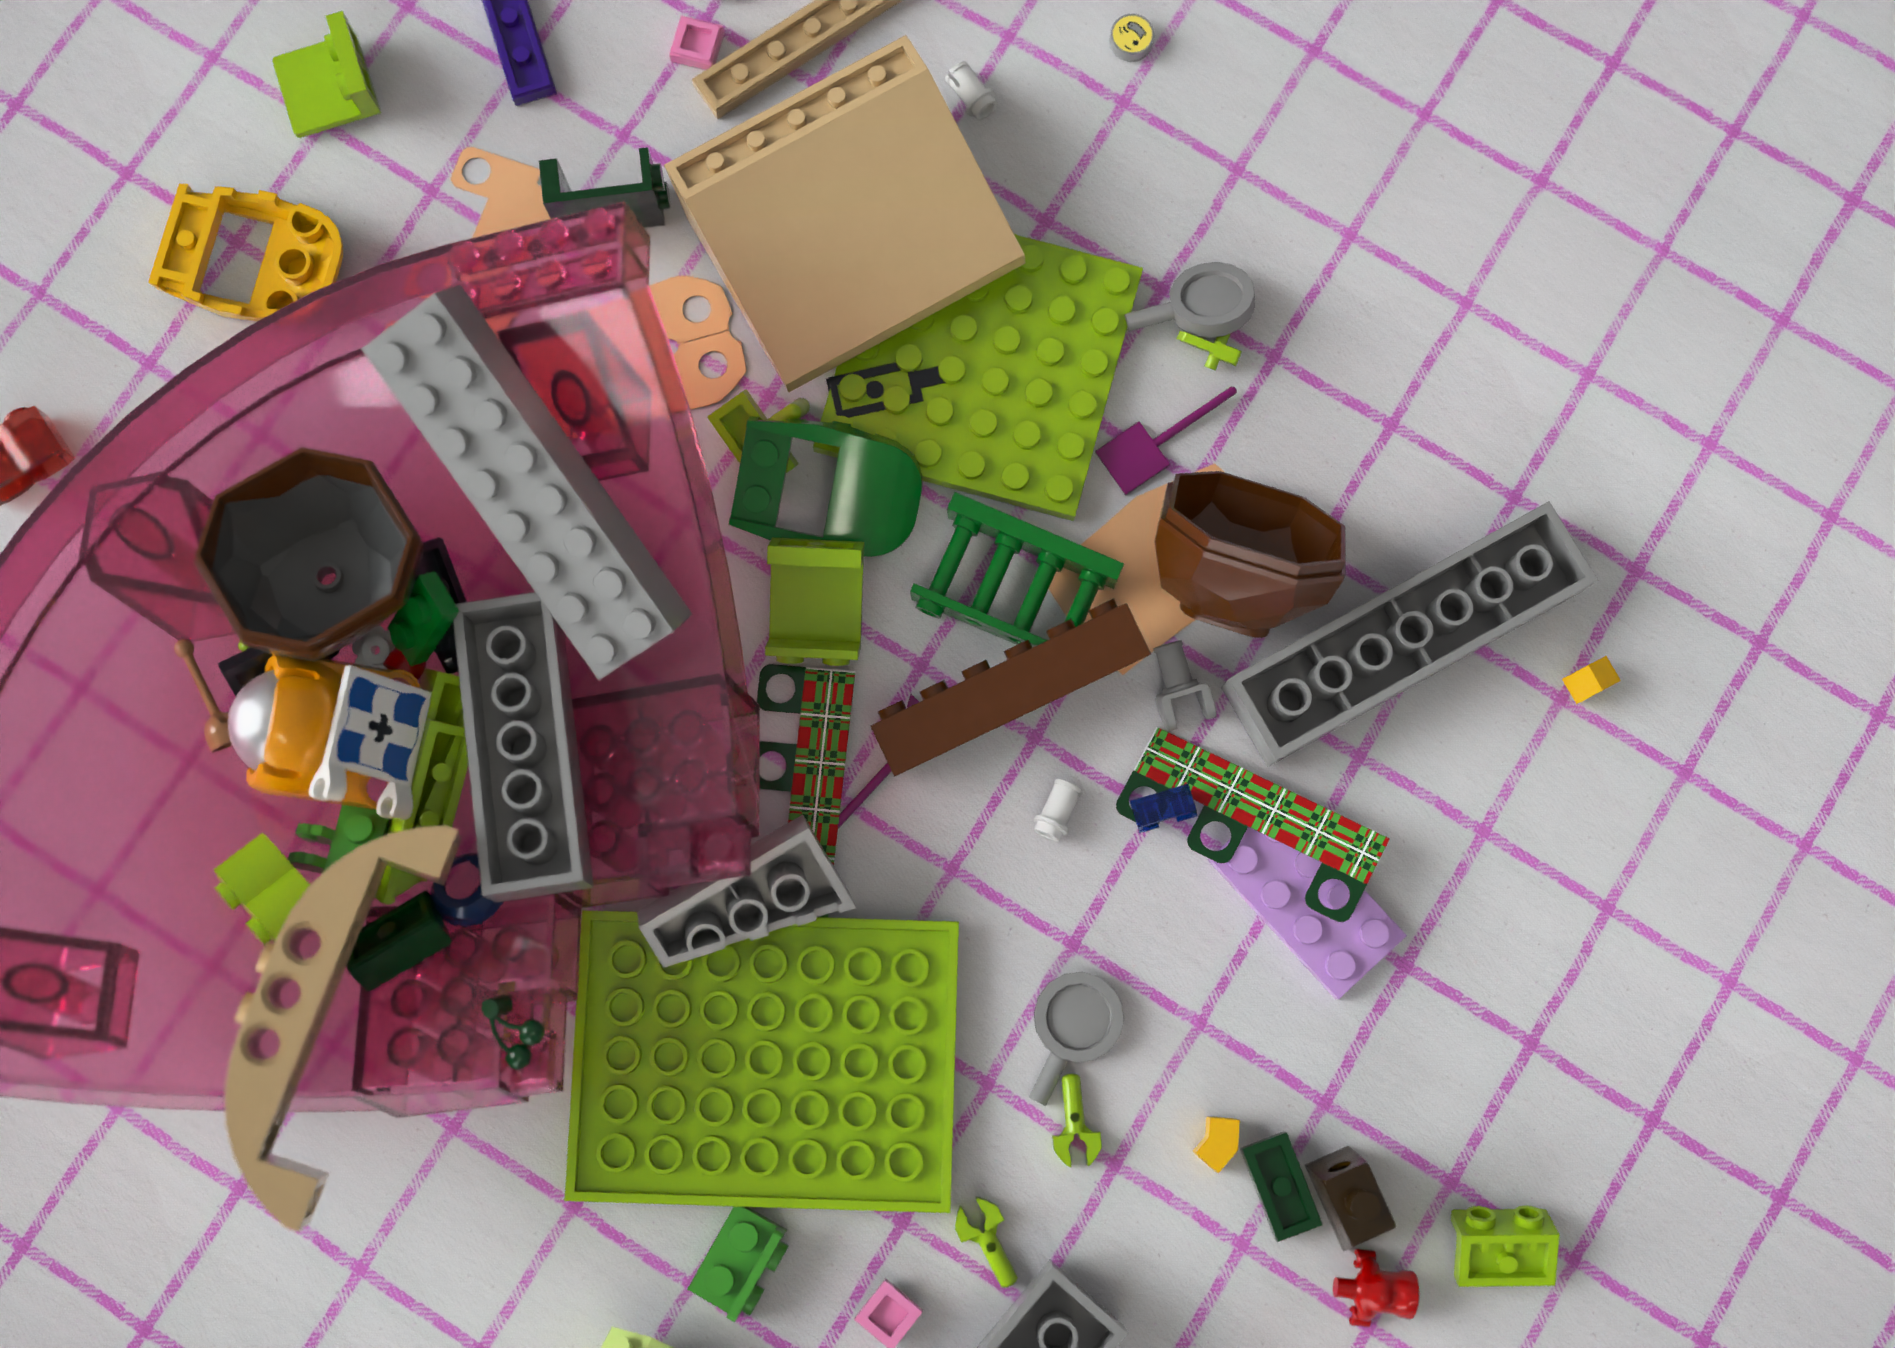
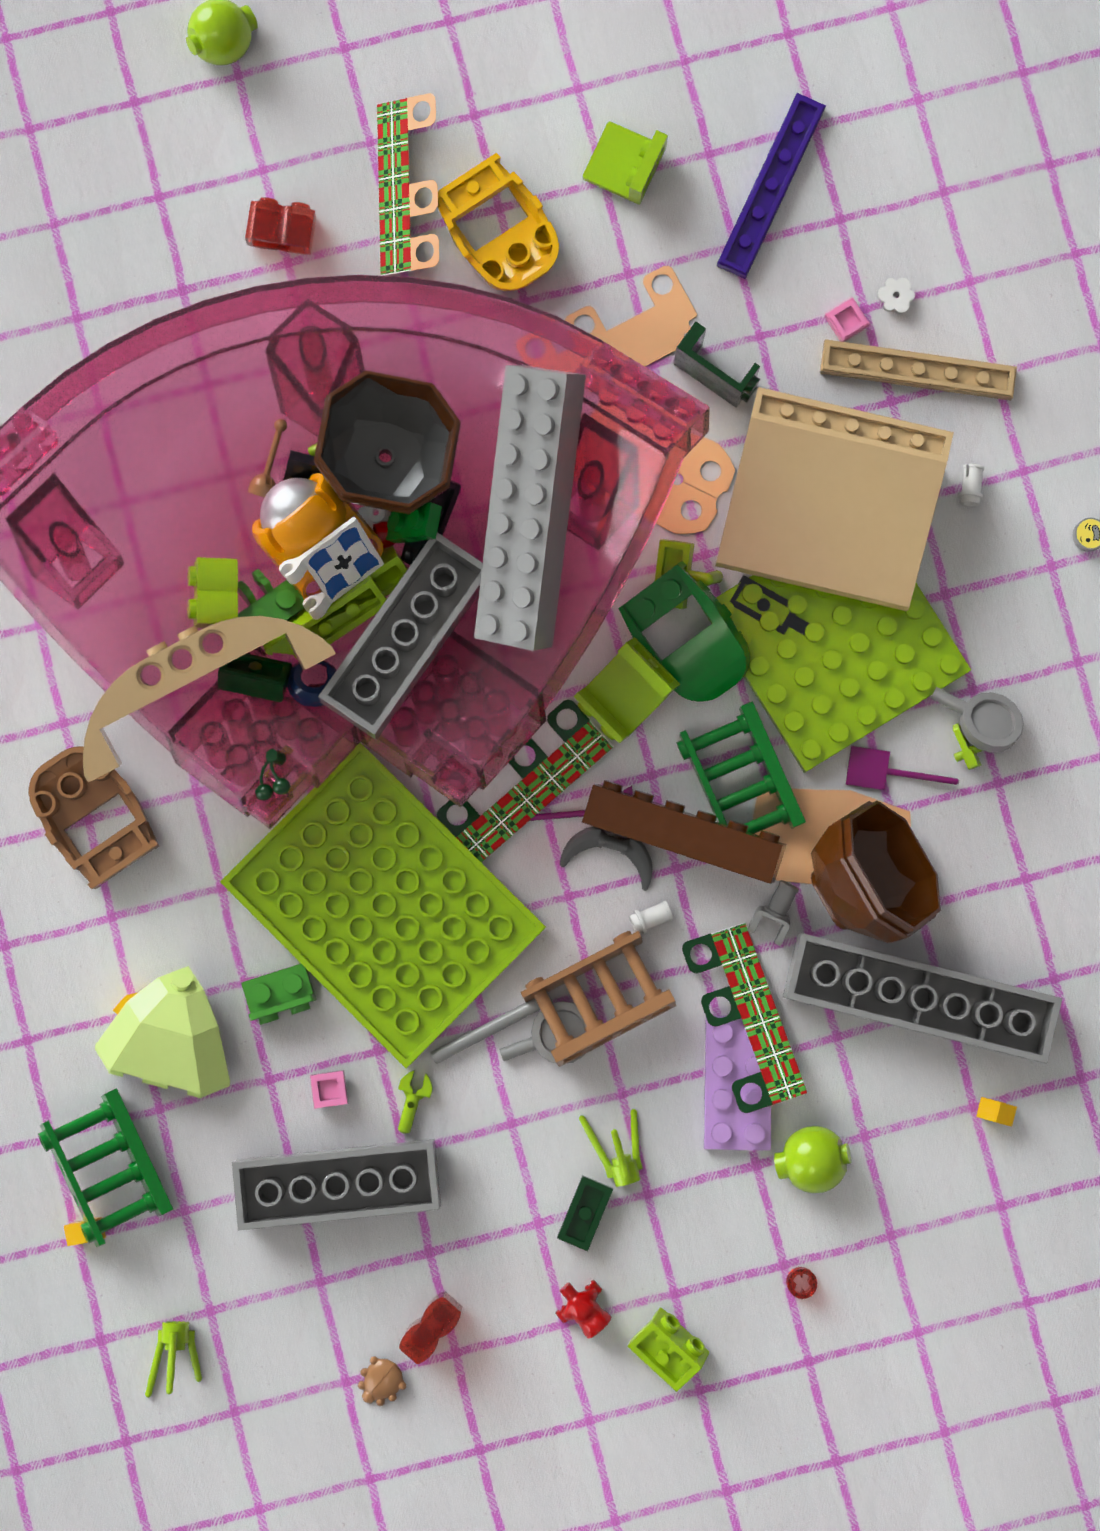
camera: 45 degrees right, 5 degrees up
(108, 316) = (396, 193): none -> piece
(311, 1269) = (65, 797): none -> medium nougat slope
(787, 886) = (476, 828): light grey wedge -> none
(970, 758) = (594, 837): none -> dark grey piece
(999, 1083) = (485, 1030): none -> light grey bar
(1075, 1123) = (510, 1083): lime bar -> none
(1129, 935) = (626, 1016): none -> medium nougat fence
(1163, 806) = (706, 966): clear blue piece -> none
(1219, 1142) = (574, 1162): yellow piece -> none
(1276, 1098) = (623, 1168): none -> lime plant
(1350, 1197) = (614, 1251): dark brown torso -> none
(1460, 903) = (813, 1159): none -> lime brick
(1575, 1031) = (791, 1285): none -> clear red bush

